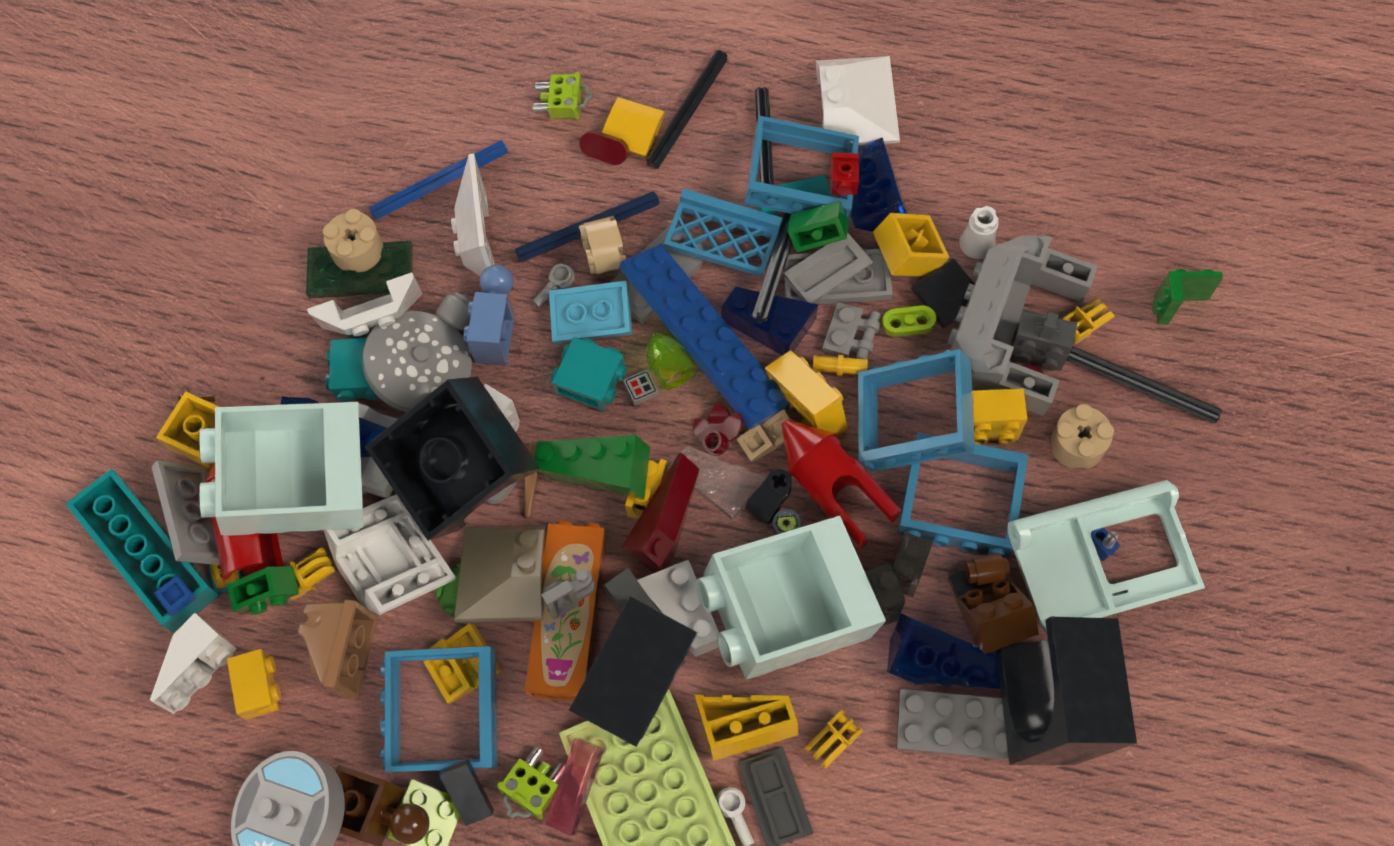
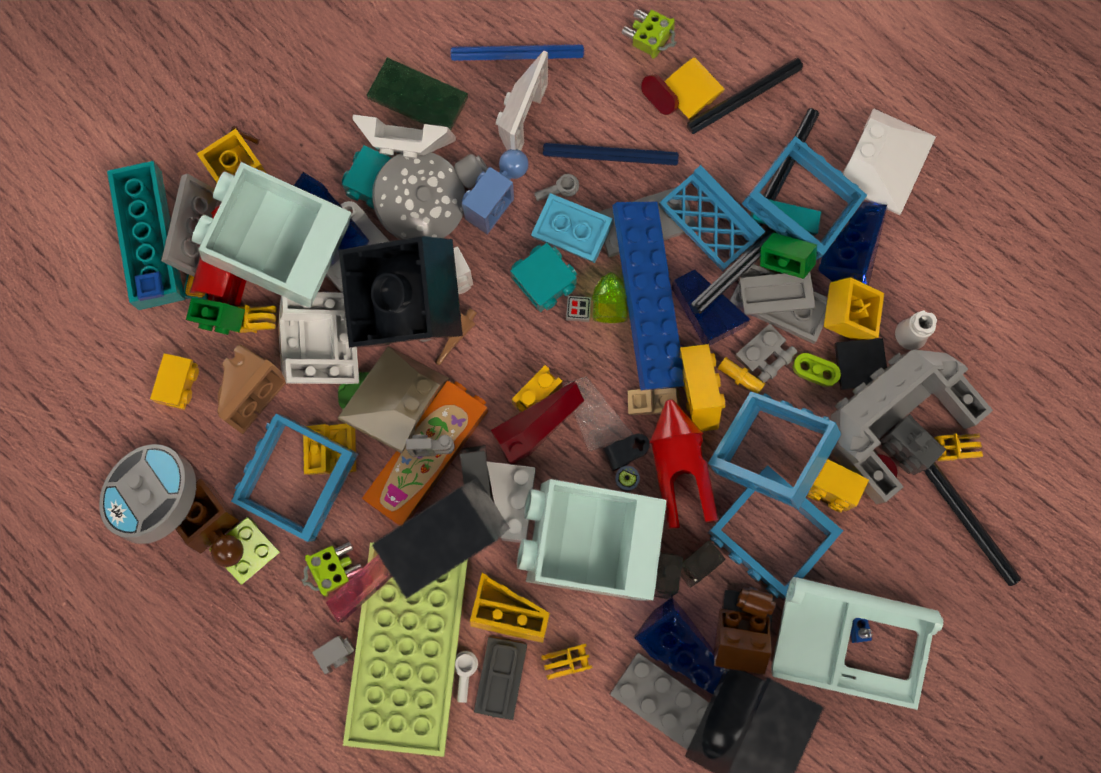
camera: 25 degrees right, 10 degrees up
(189, 663) = (137, 341): white slope -> none
(353, 241) = (422, 72): tan brick -> none
(466, 792) = (281, 549): black tile -> none
(599, 462) = (511, 356): green wedge -> none
(602, 245) = (612, 178): tan brick -> none
(717, 426) = (619, 372): dark red plate -> none
(844, 173) = (834, 223): red brick -> none
(1095, 435) = (908, 537): tan brick -> none
(1183, 286) = (1051, 461): green bracket -> none

